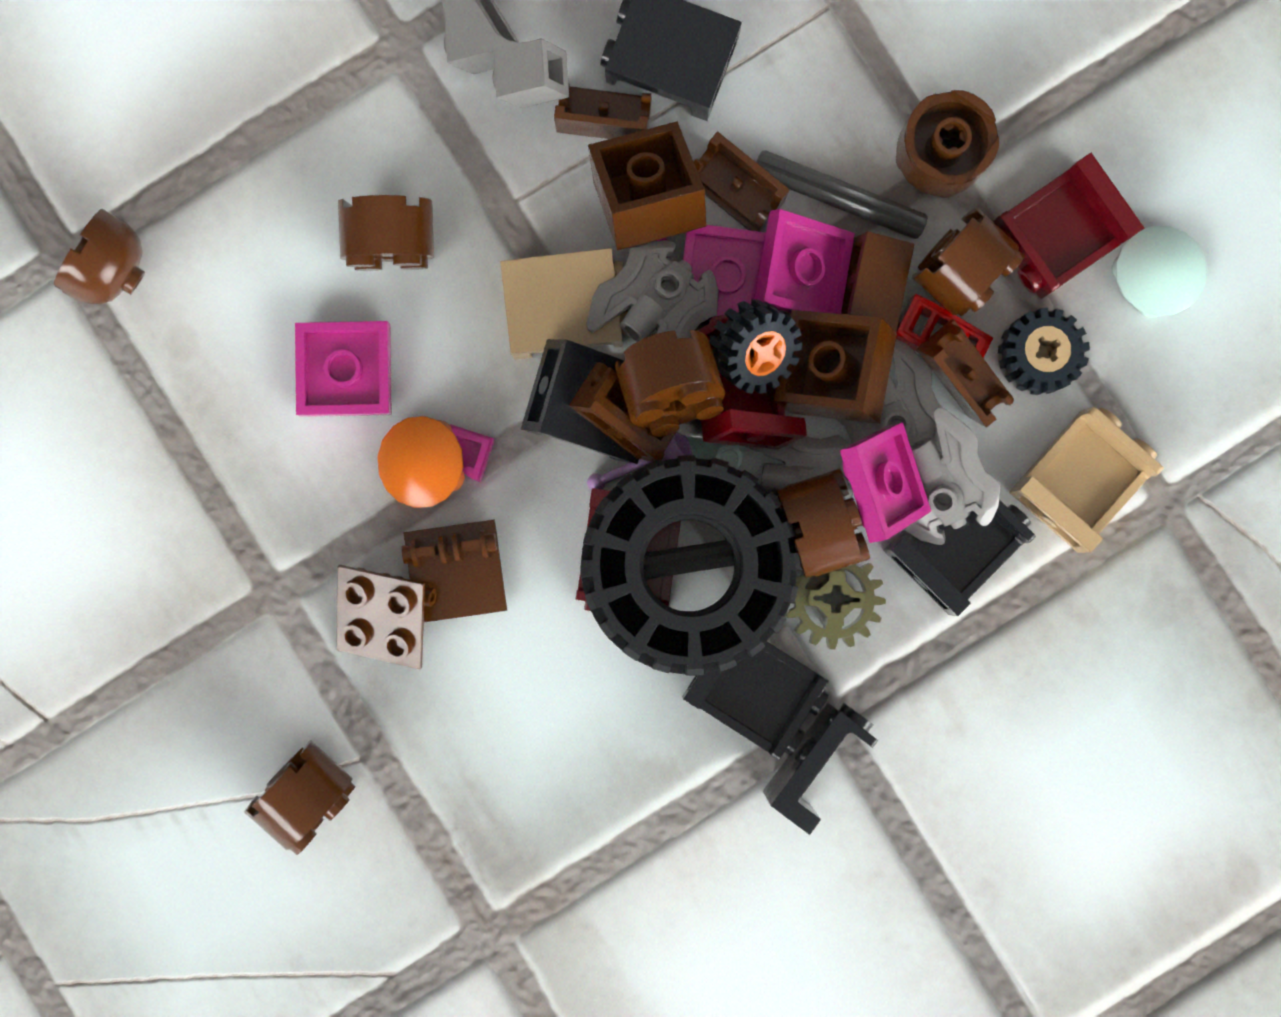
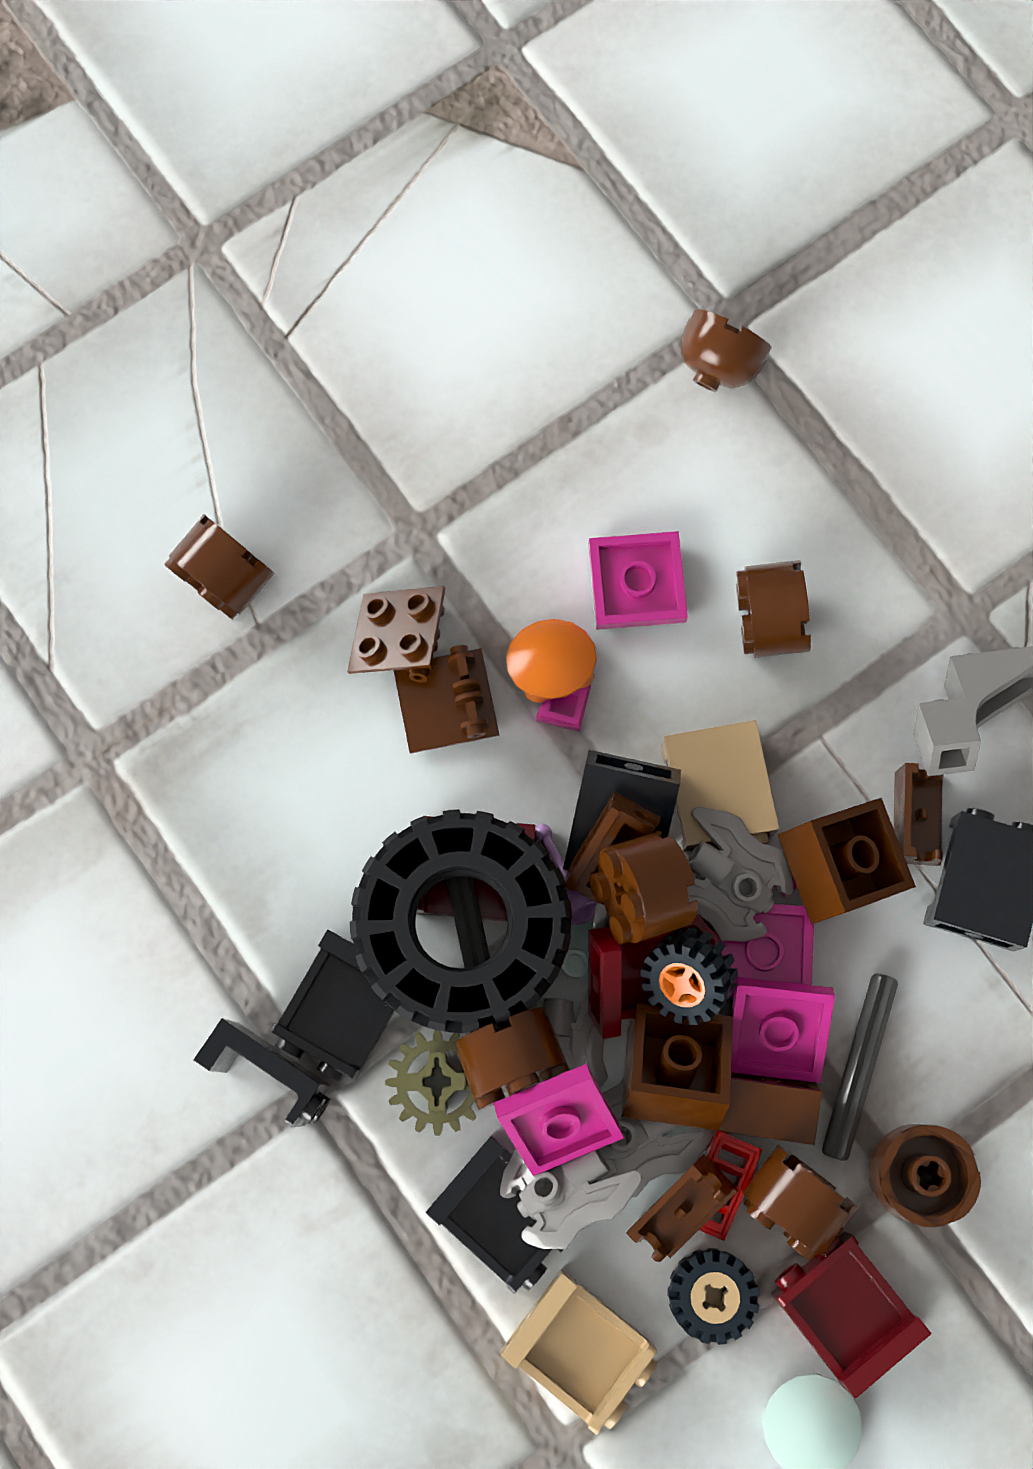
camera: 90 degrees right, 10 degrees down
(739, 183) = (859, 955): reddish brown hinge -> none

